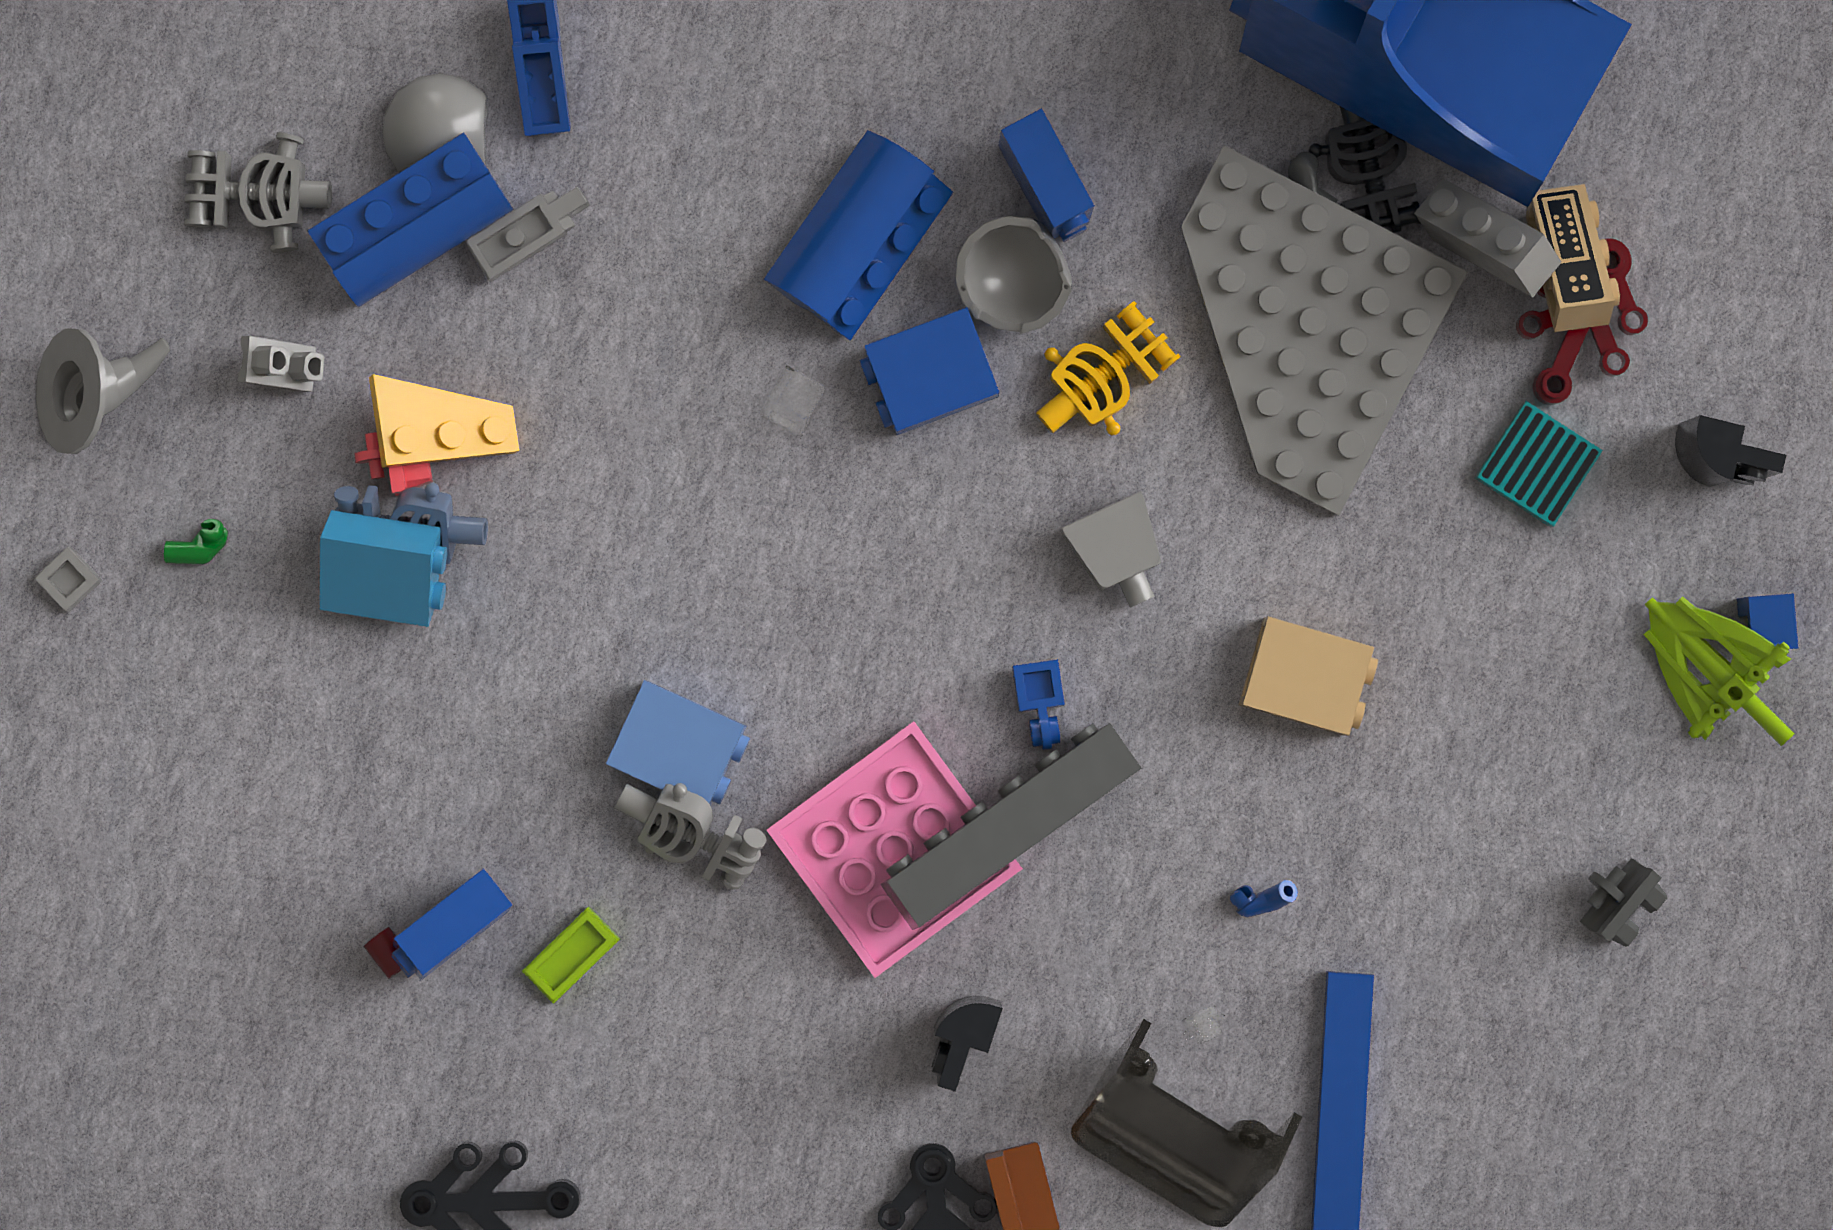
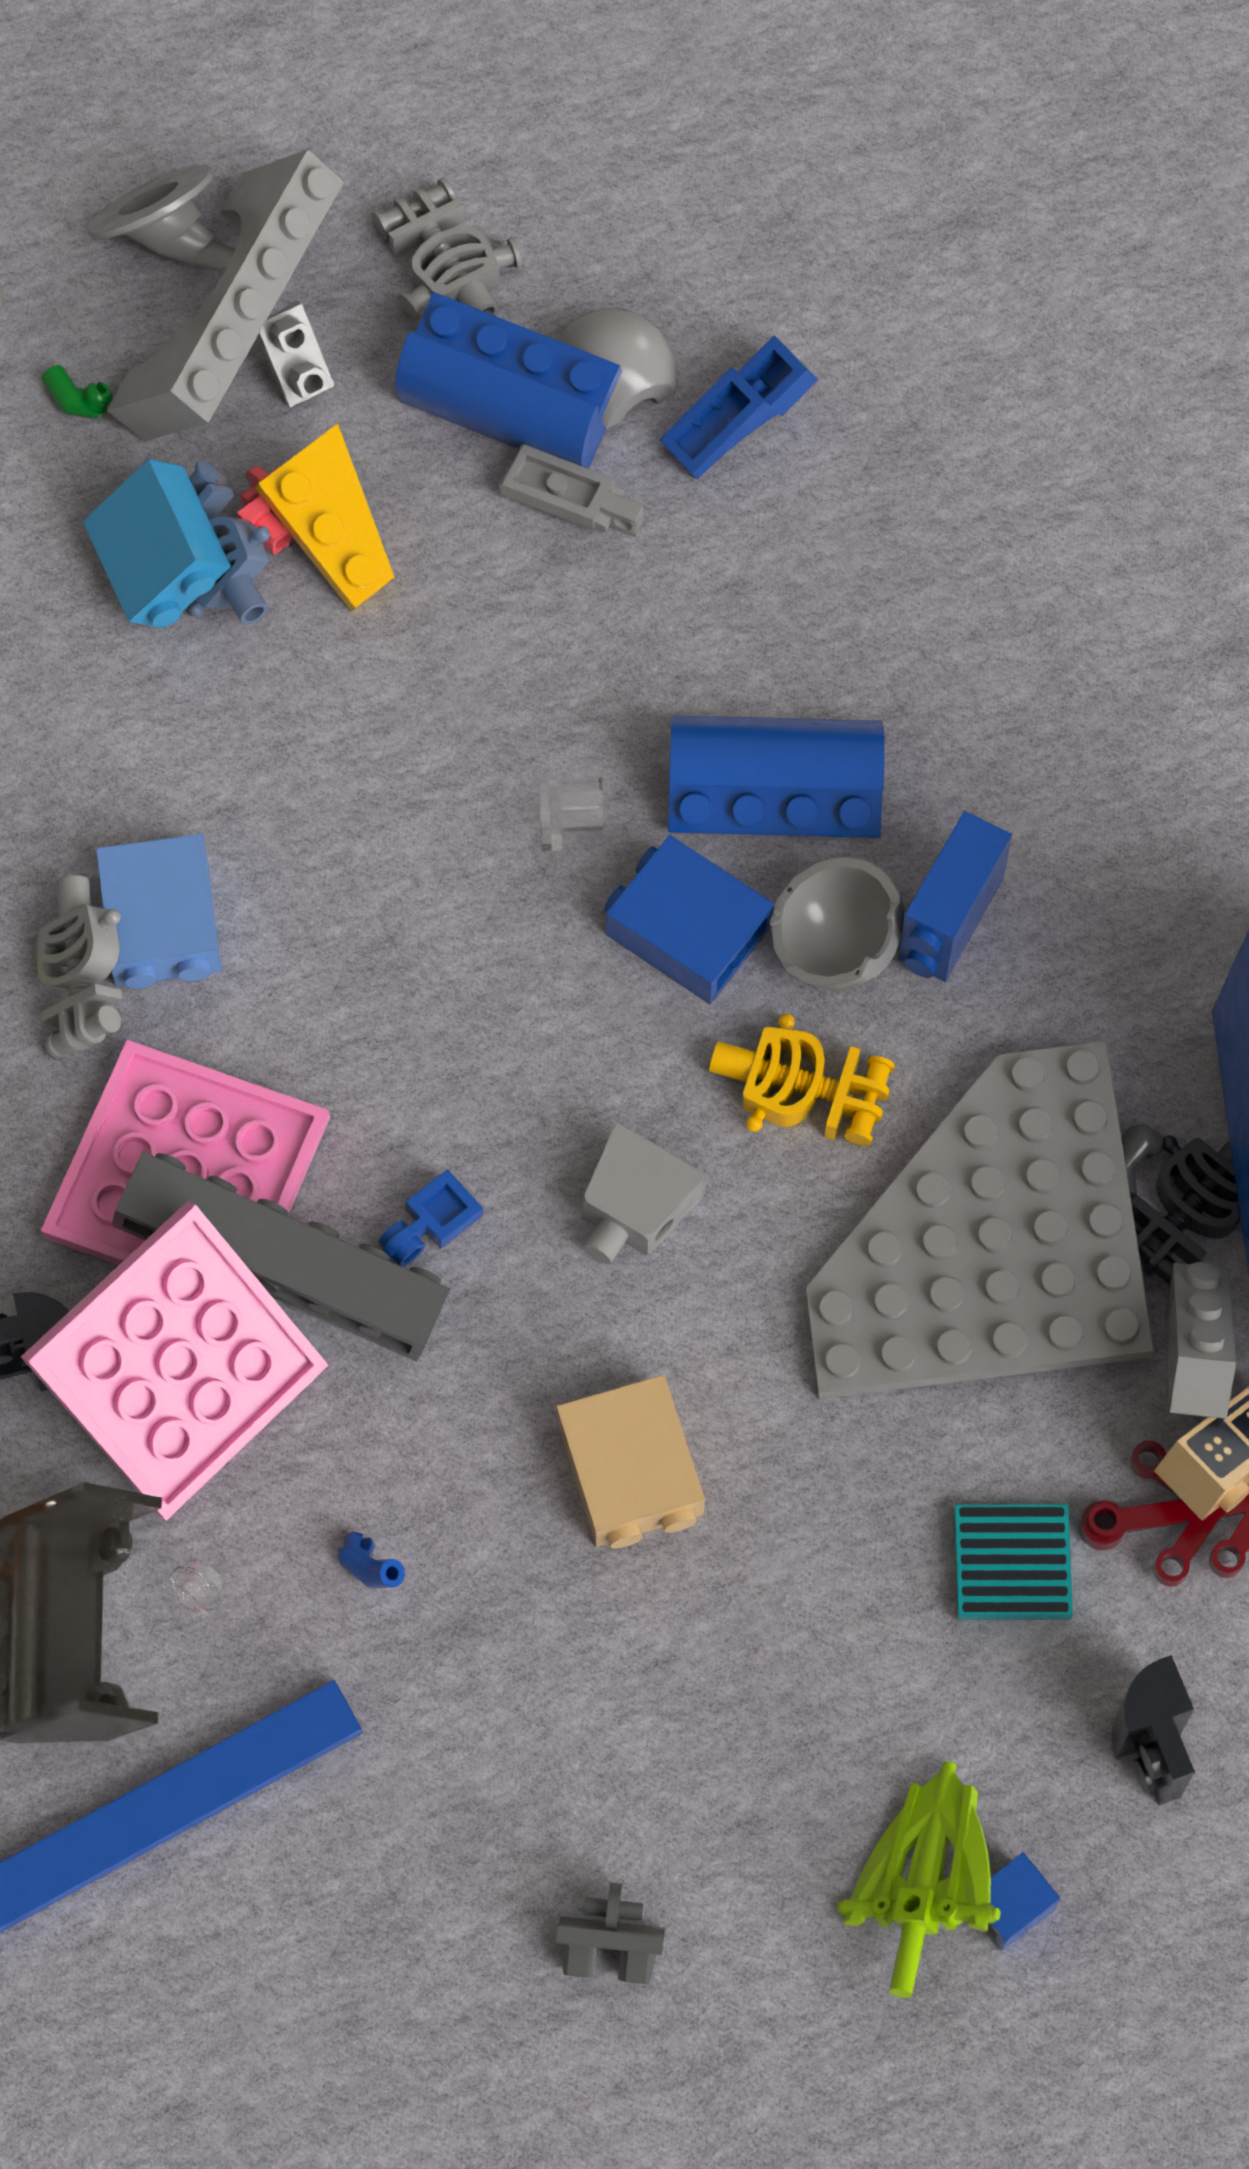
camera: 60 degrees right, 20 degrees down
(256, 453) = (277, 216): none -> light grey arch
(1048, 948) = (175, 1360): none -> bright pink plate

